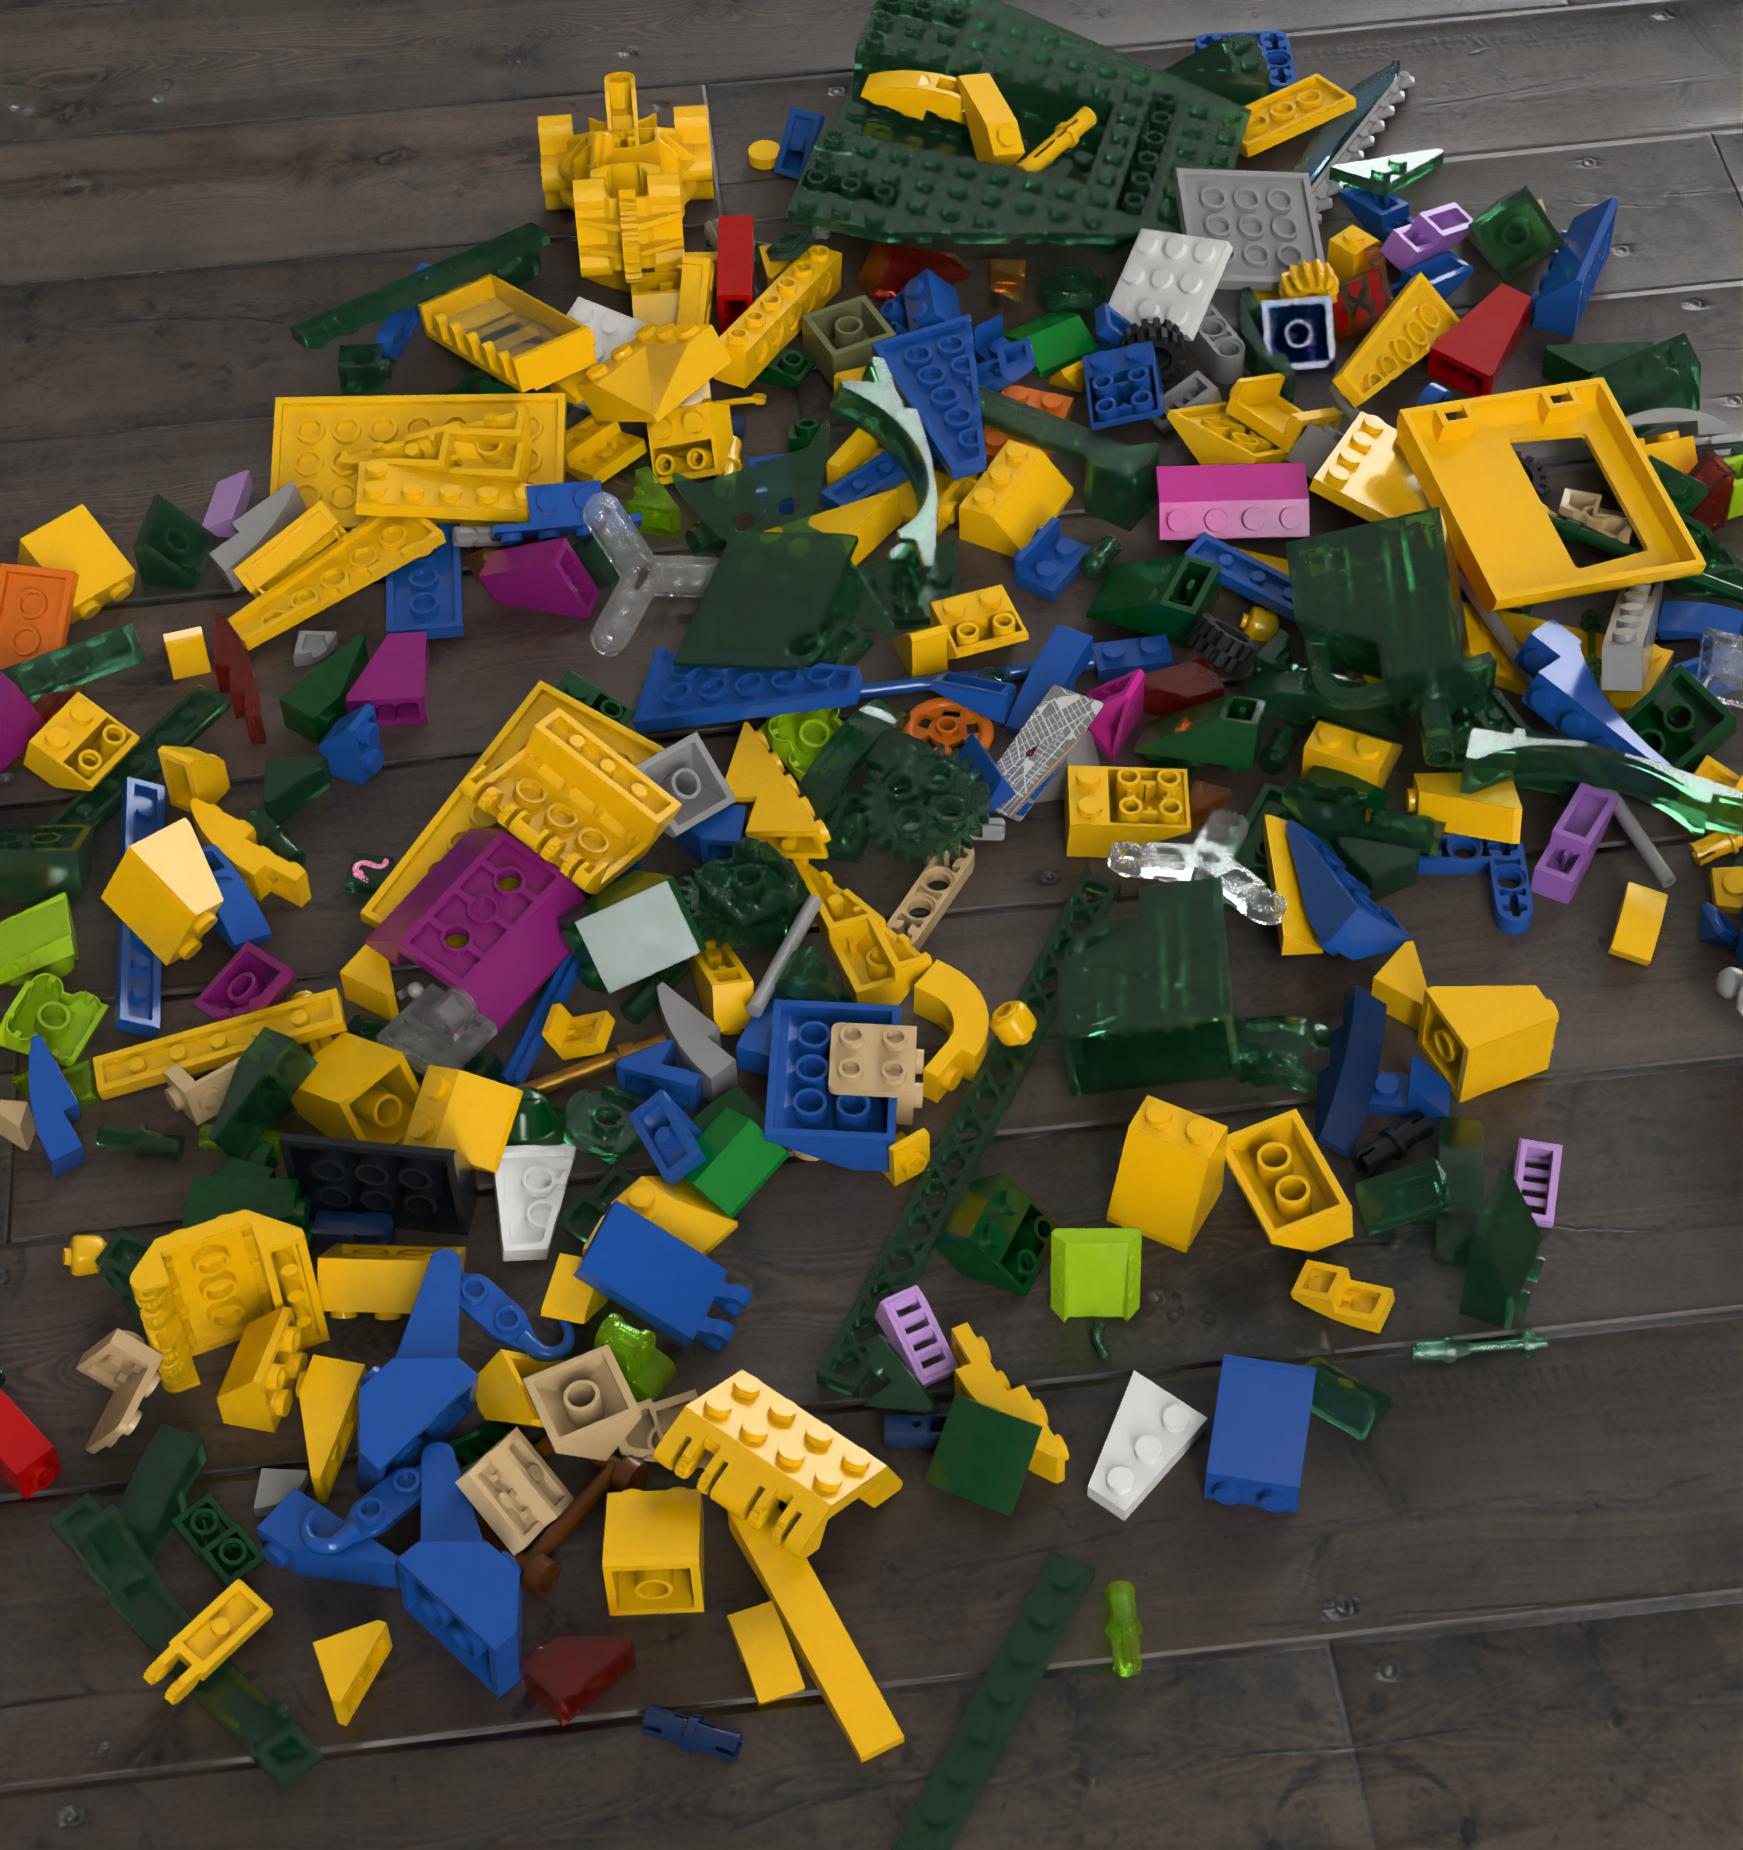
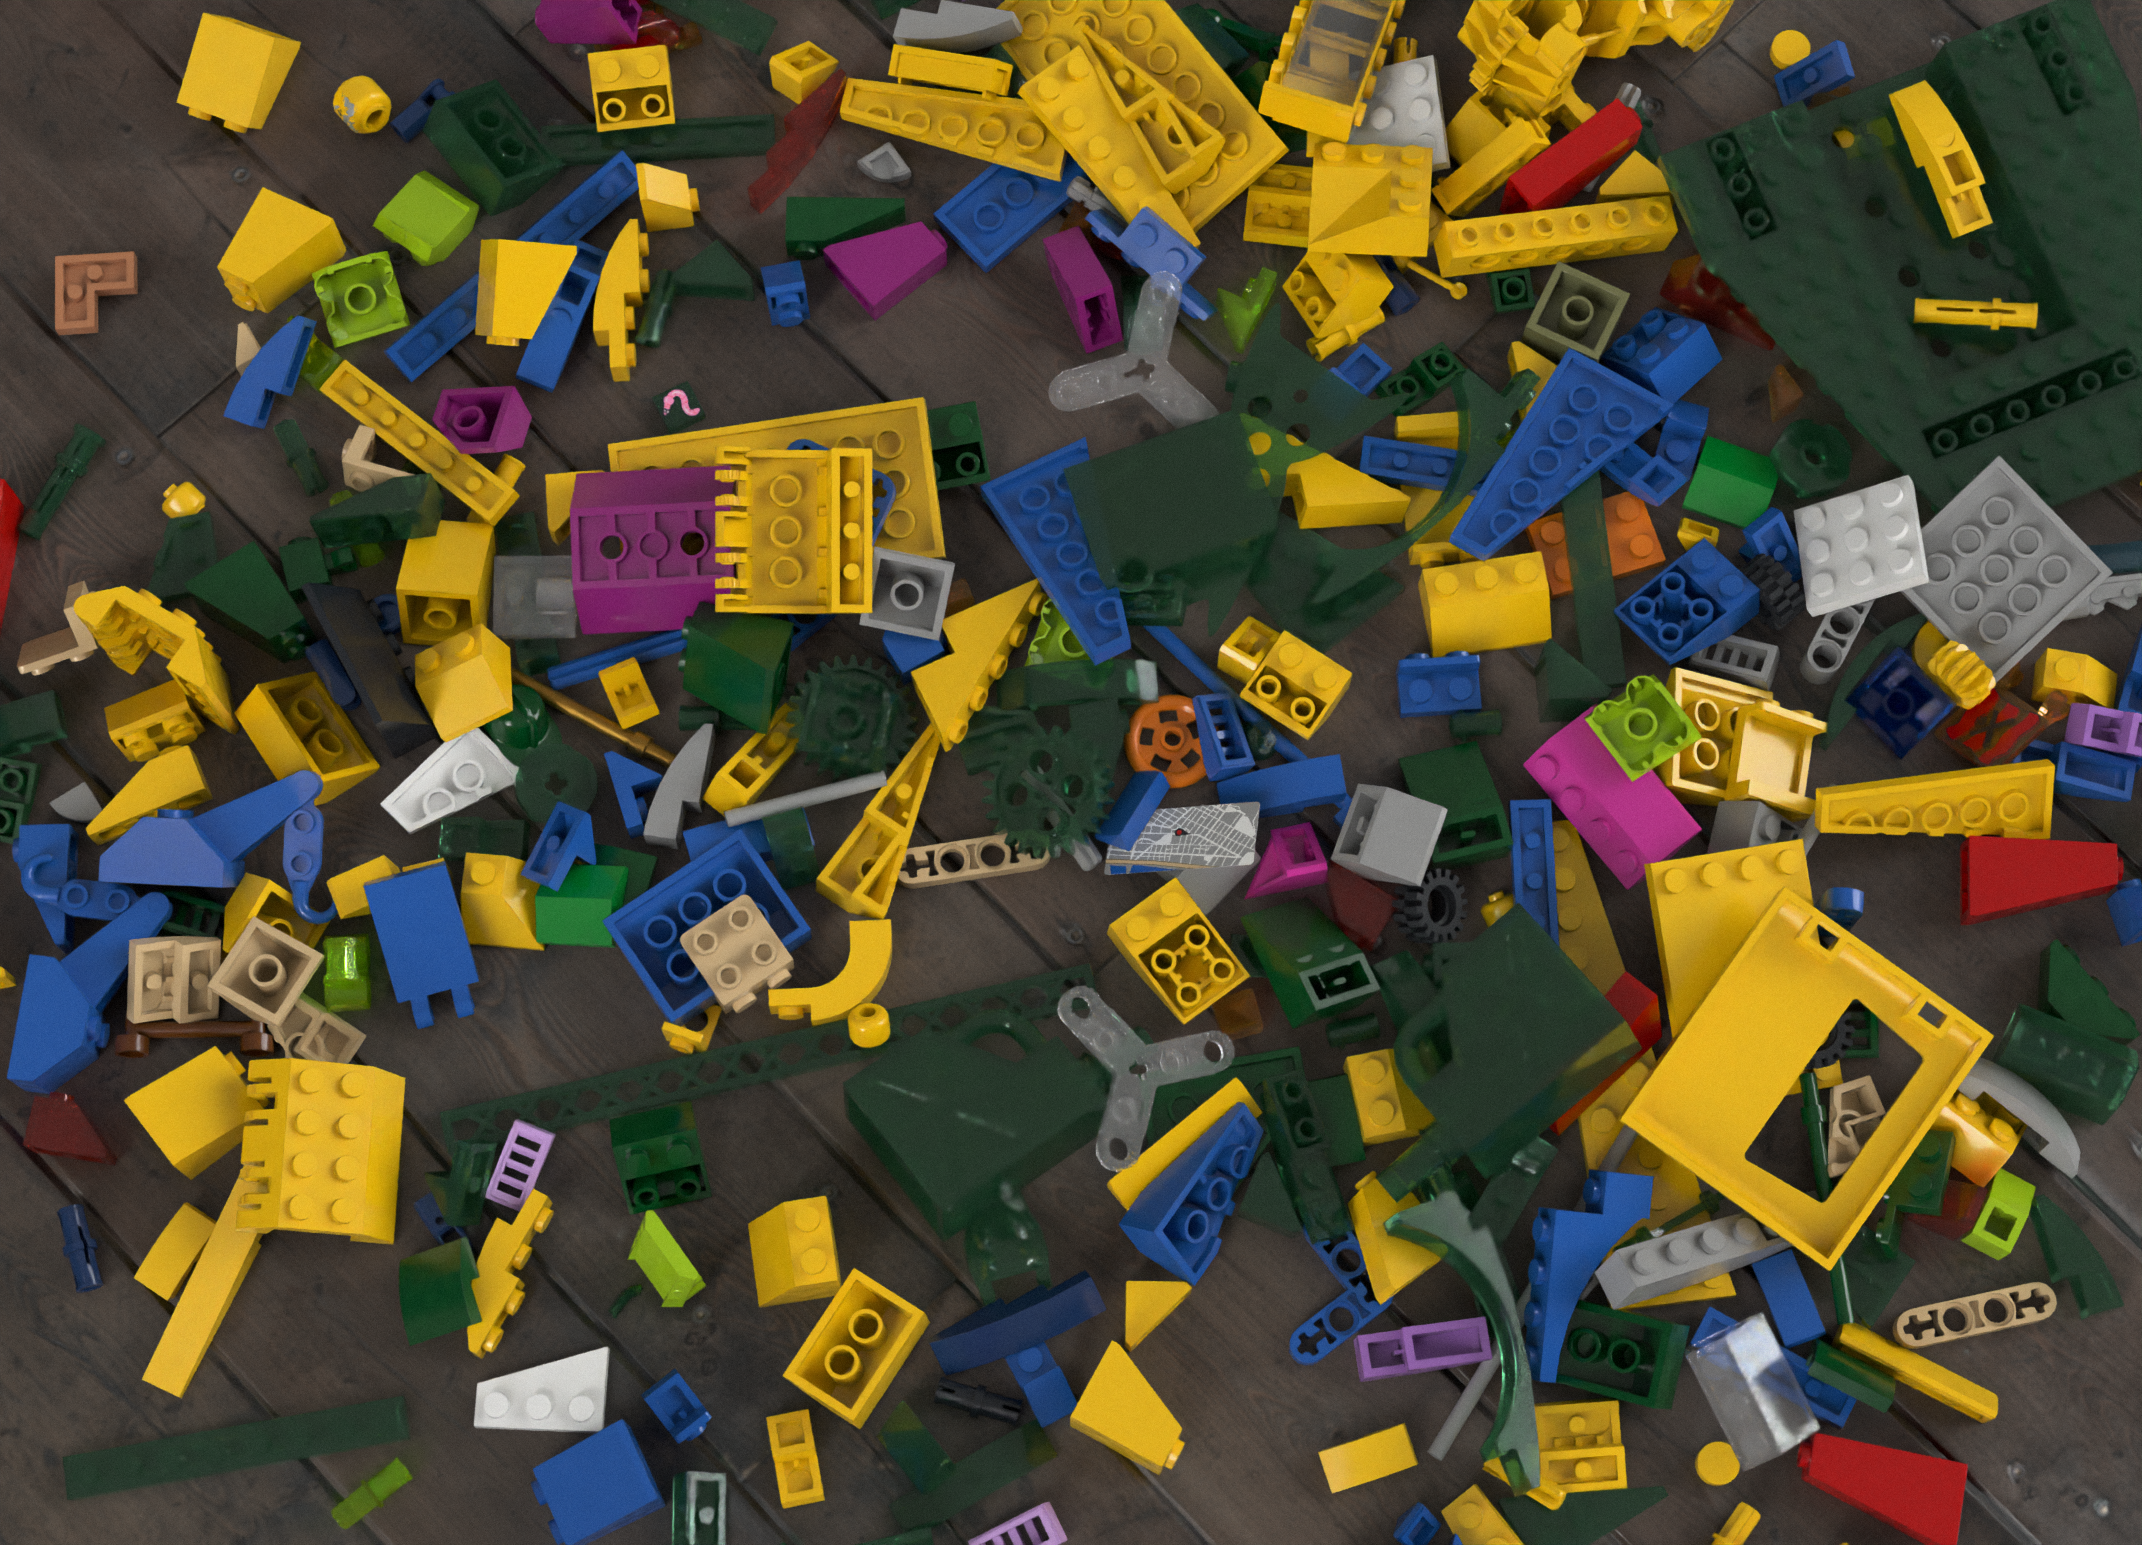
camera: 50 degrees right, 25 degrees up
(413, 990) = (556, 549): light grey hinge -> none
(790, 246) = (1644, 182): clear green tile -> none
(990, 121) = (1944, 234): yellow slope -> none
(1153, 621) = (1388, 835): none -> light grey slope
(1200, 439) = (1642, 726): none -> lime slope
(1217, 1339) = (677, 1407): none -> blue bracket

